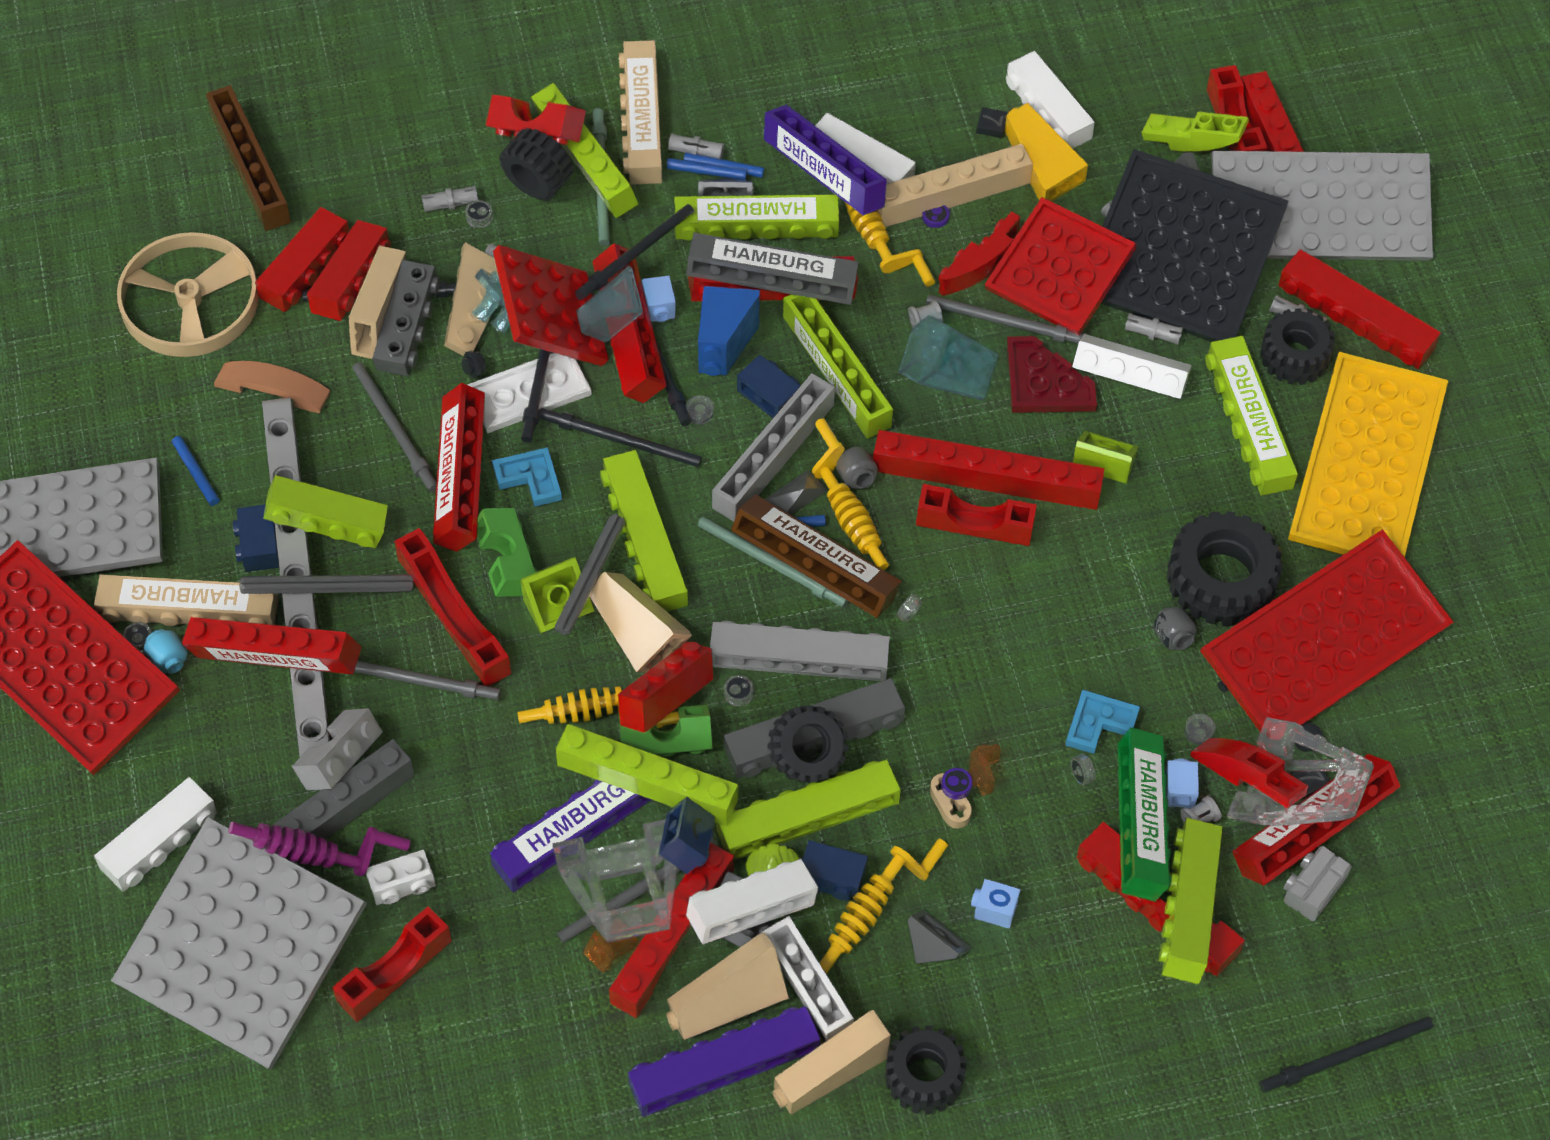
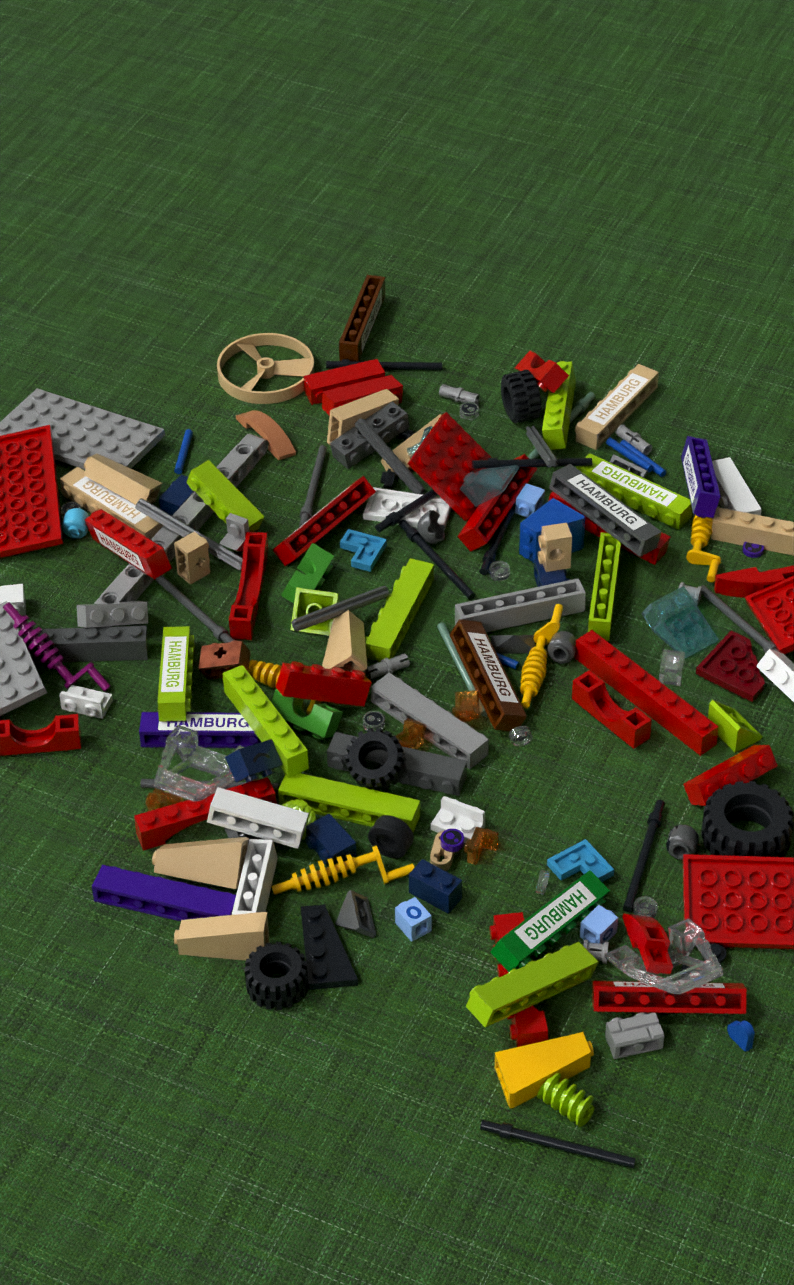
camera: 40 degrees right, 15 degrees down
(178, 561) = (121, 479): none -> tan slope
(280, 232) = (390, 365): none -> black bar
(357, 612) = (192, 557): none -> tan brick
(380, 550) = (236, 529): none -> light grey slope
(459, 336) = (389, 456): none -> dark grey axle
(482, 779) = (176, 674): none -> lime brick
(533, 723) = (222, 657): none -> copper brick
(585, 403) = (430, 528): none -> dark grey hair
(622, 221) = (541, 446): none -> dark grey axle
(694, 610) = (387, 666): none -> light grey pin
(763, 350) = (555, 547): none -> tan brick
(798, 685) = (412, 734): none -> clear orange bracket
(825, 608) = (466, 705): none -> clear orange bracket
(894, 823) = (391, 836): none -> black tyre
(935, 753) = (458, 816): none -> white bracket
(935, 1000) = (325, 955): none -> black wing
(986, 421) = (671, 667): none -> clear brick
(986, 849) = (435, 886): none -> dark blue brick
(1124, 621) = (654, 822): none -> black bar
(1157, 517) = (741, 767): none -> red brick
(1259, 988) = (529, 1066): none -> yellow slope
(1319, 998) = (566, 1099): none -> lime piece
(1408, 810) = (742, 1034): none -> blue tile

